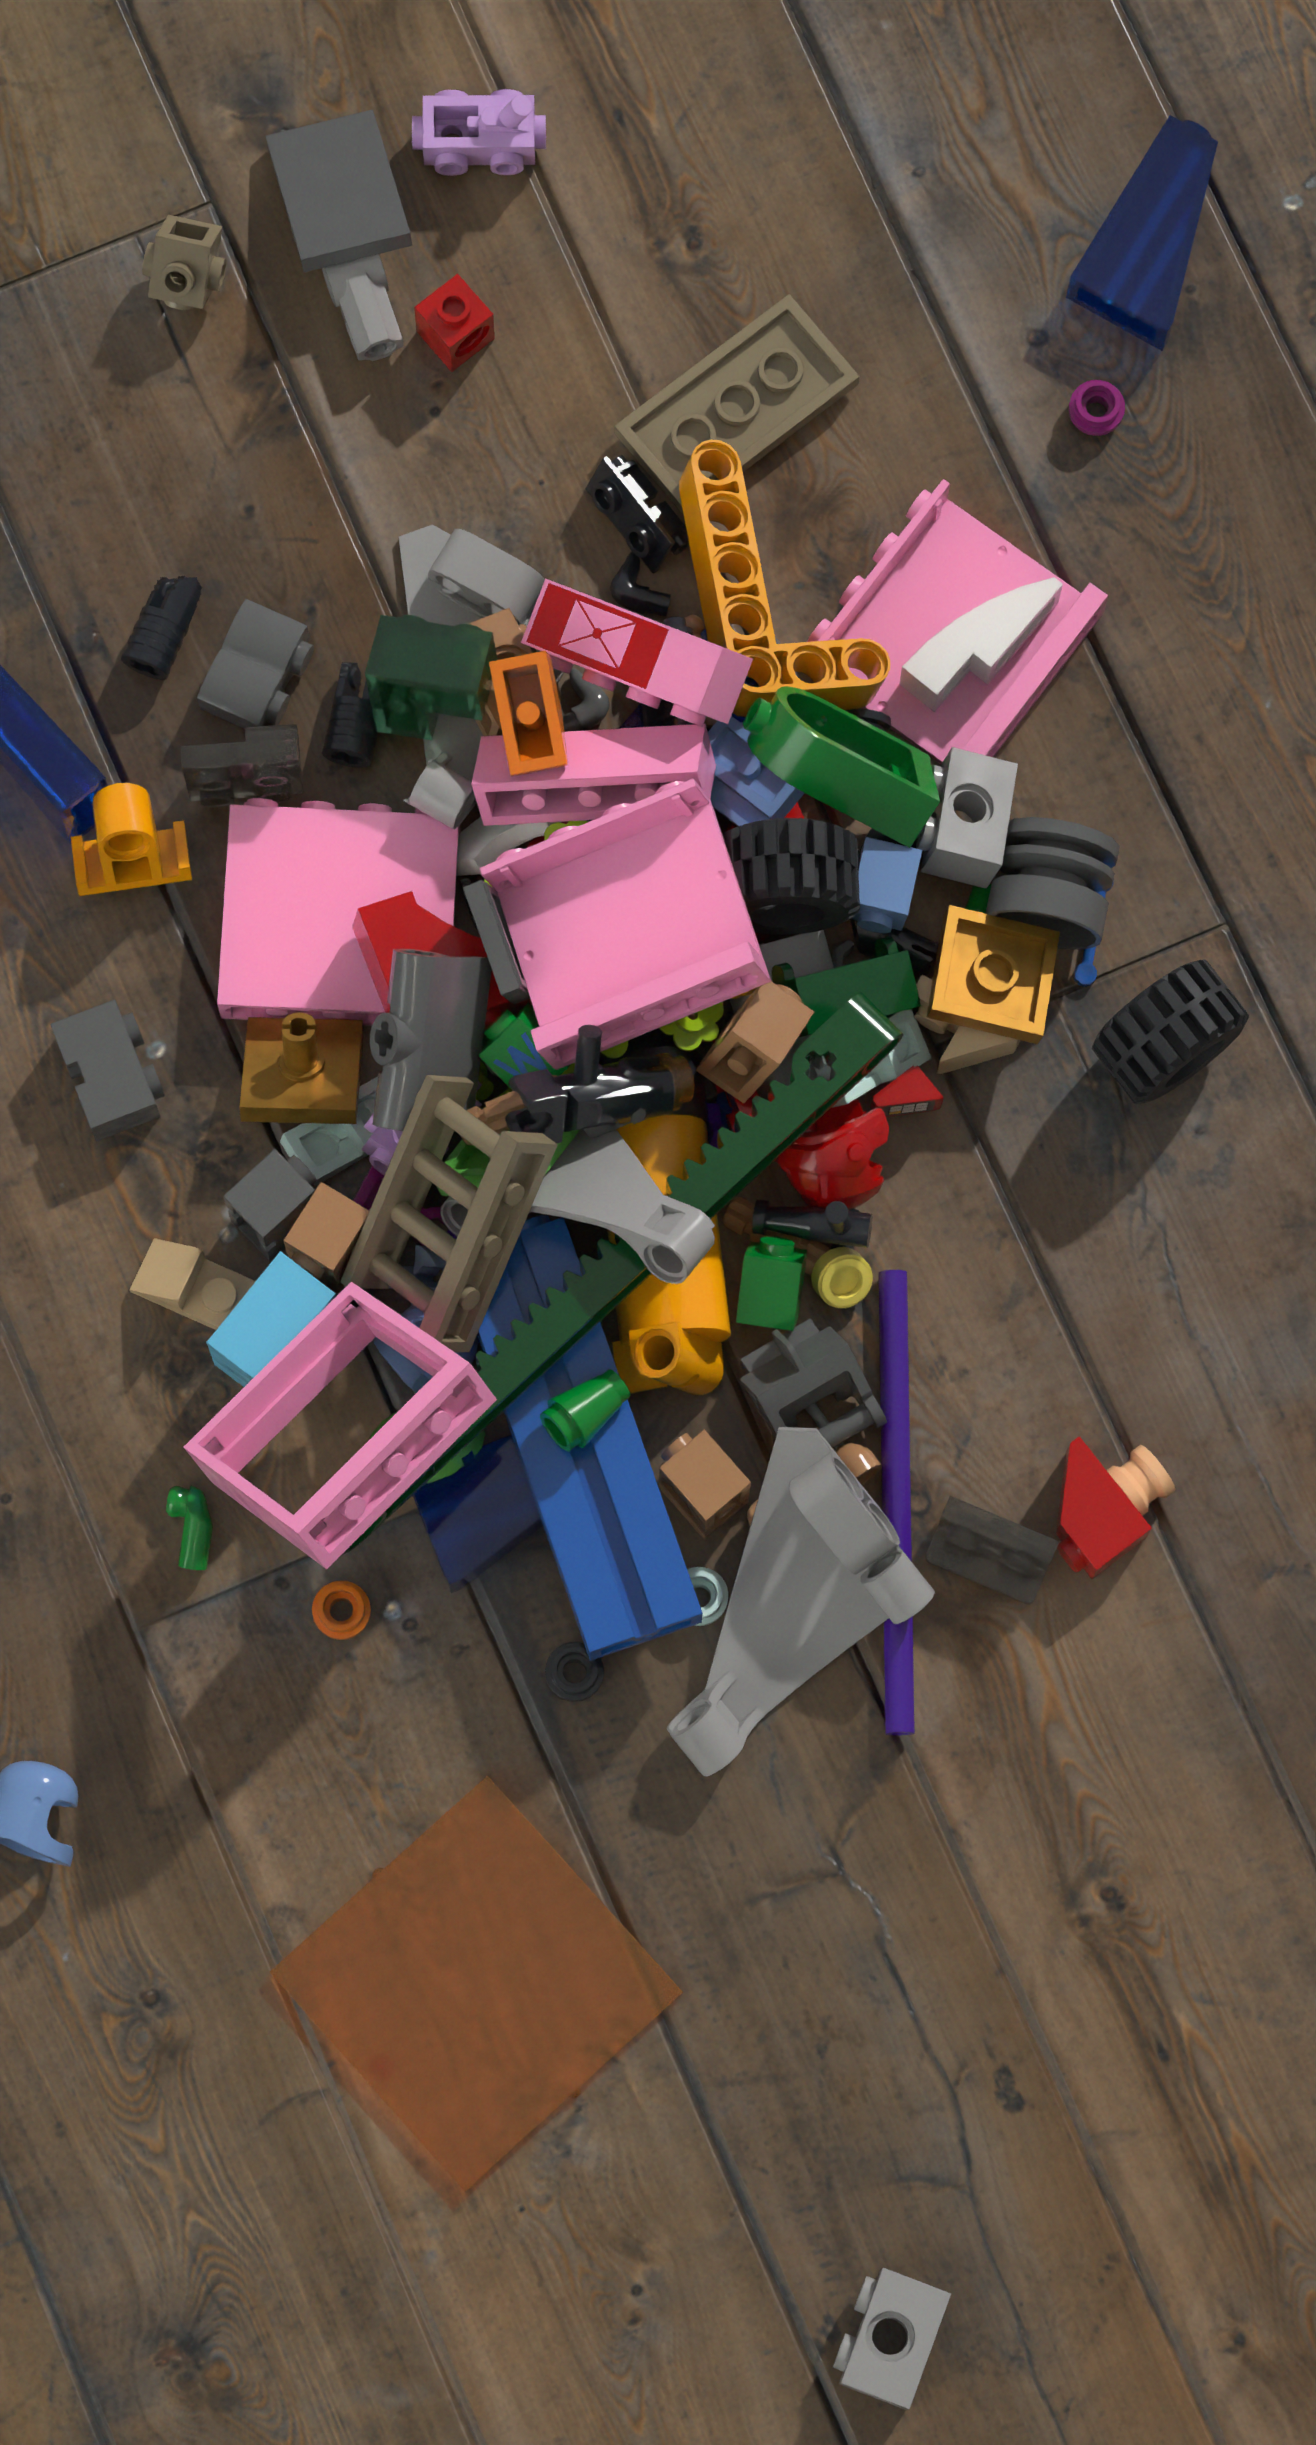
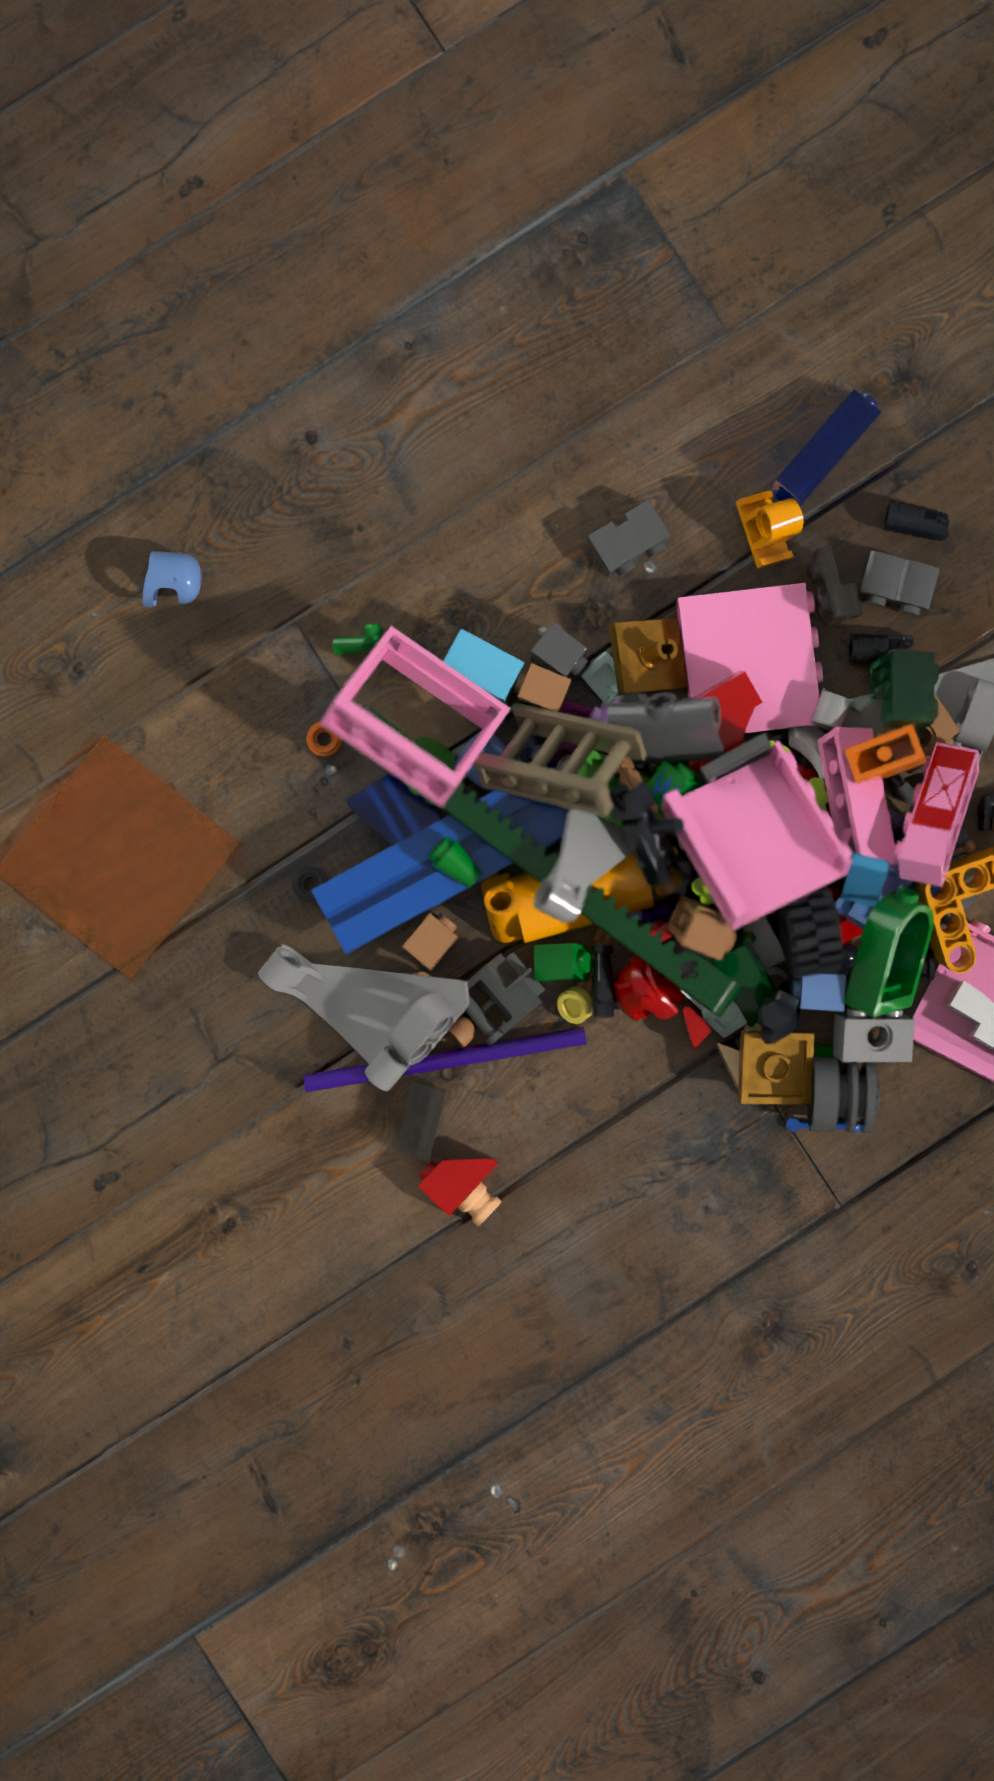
camera: 80 degrees right, 10 degrees up
(189, 1283) = (506, 615): tan slope -> none
(717, 1589) = (372, 961): light aqua plate -> none
(723, 774) = (865, 879): none -> dark azure tile
(913, 951) = (777, 1016): none -> black rock
(1170, 1031) = (758, 1181): black tyre -> none

